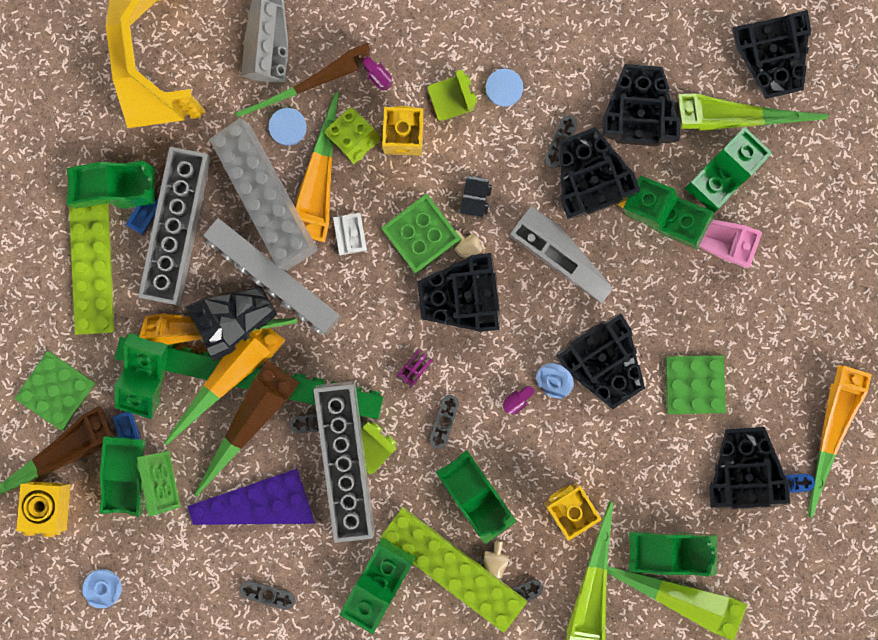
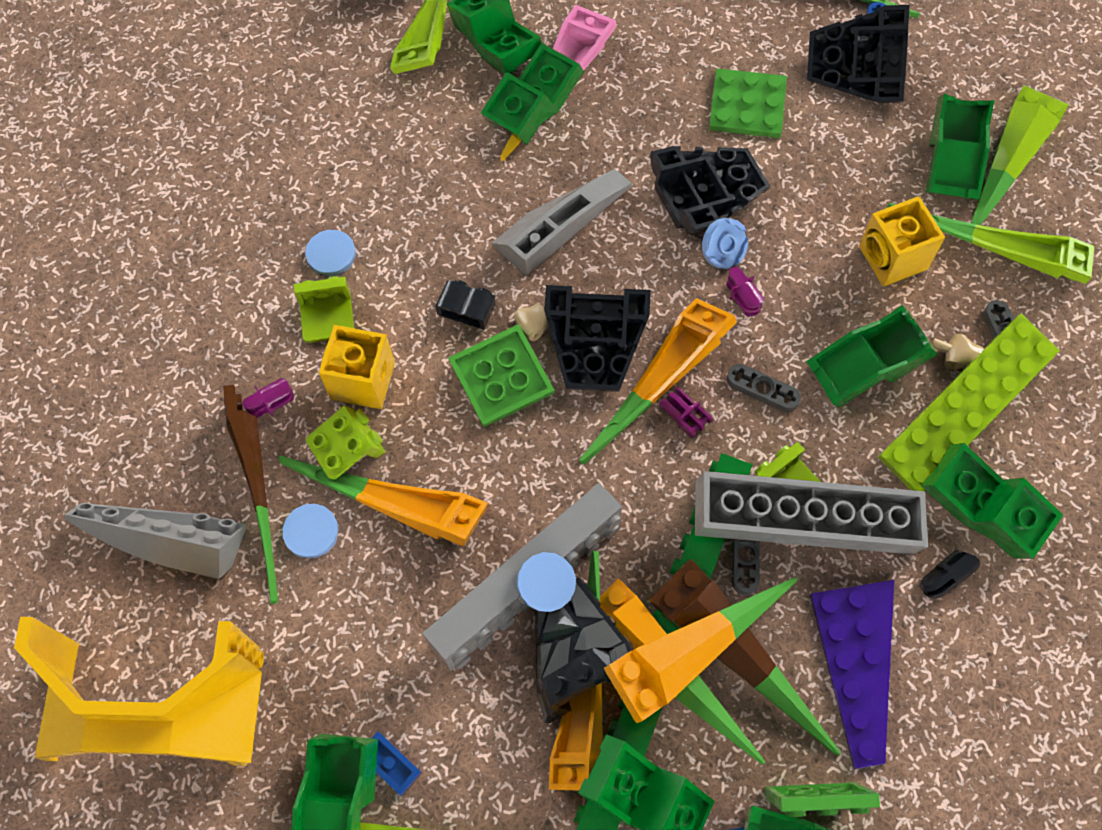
camera: 80 degrees left, 20 degrees down
(175, 226) = (421, 714): light grey brick -> none
(216, 375) = (663, 668): none -> light orange plate
(262, 291) = (546, 582): none -> light blue tile
(263, 195) = (400, 566): light grey brick -> none
(279, 604) = (999, 689): dark grey beam -> none
(323, 559) = (949, 574): none -> black arm
(350, 234) = (483, 468): white plate -> none
(466, 362) = (687, 344): none -> light orange plate
(571, 130) = (412, 191): dark grey beam -> none
(592, 175) = (467, 161): black wedge -> none
(641, 108) = (399, 104): black wedge -> none

